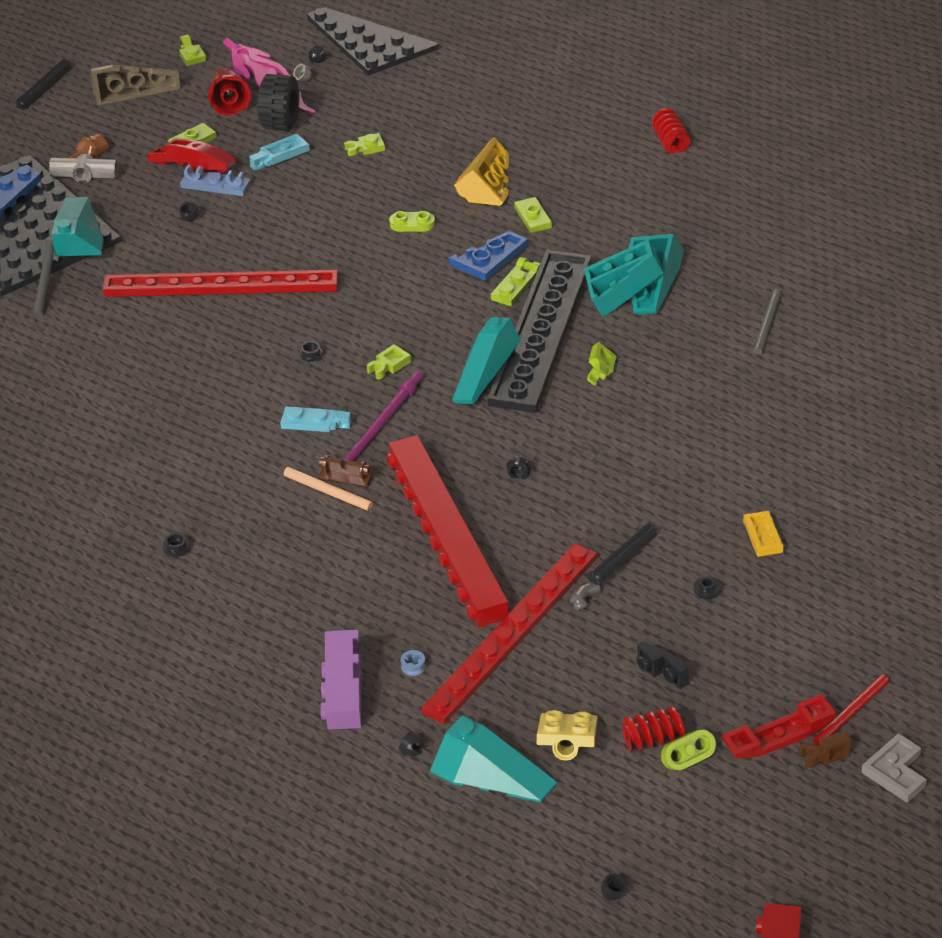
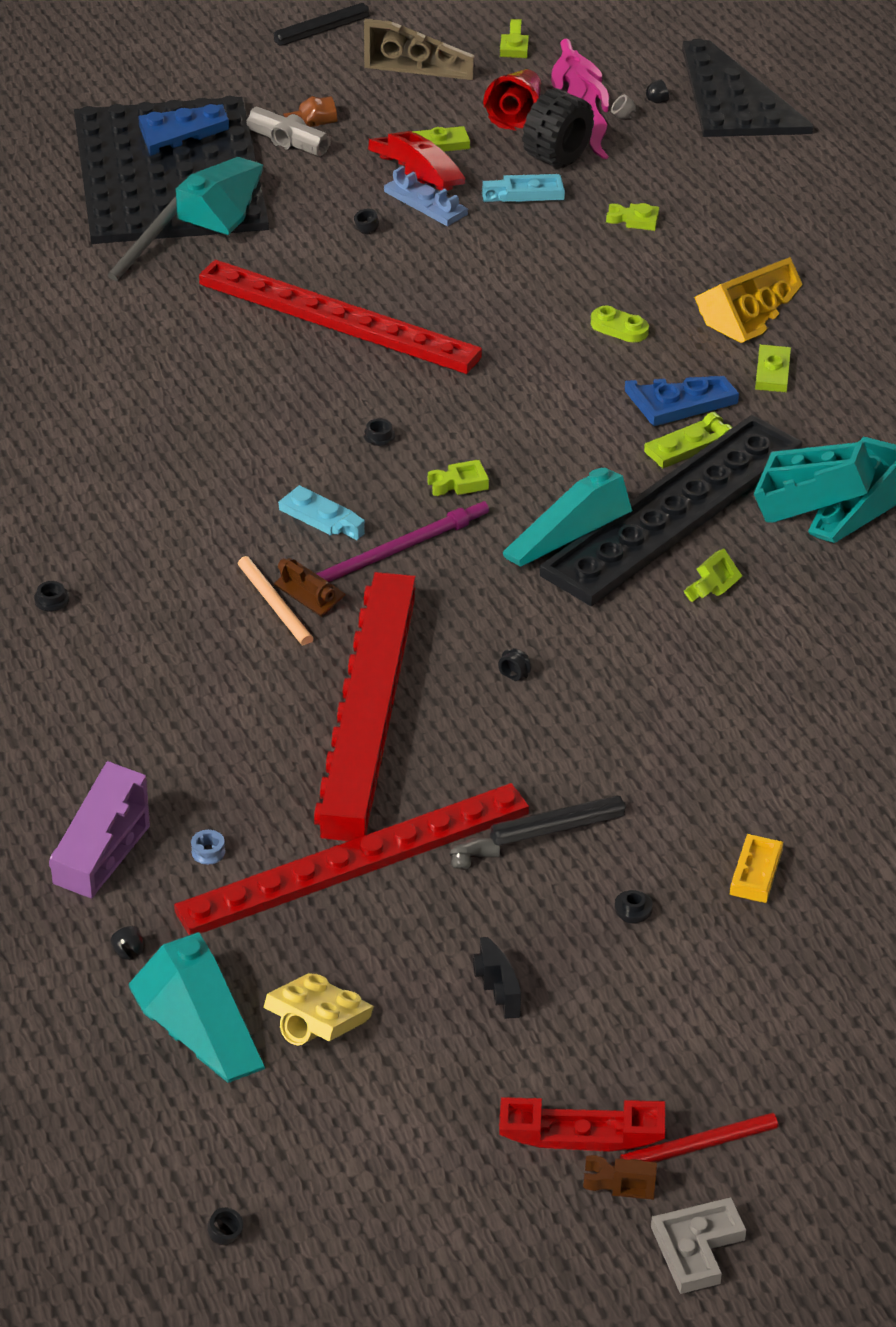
camera: 25 degrees right, 0 degrees up
(652, 727) = (424, 1052): red piece -> none
(686, 750) = (448, 1098): lime plate -> none

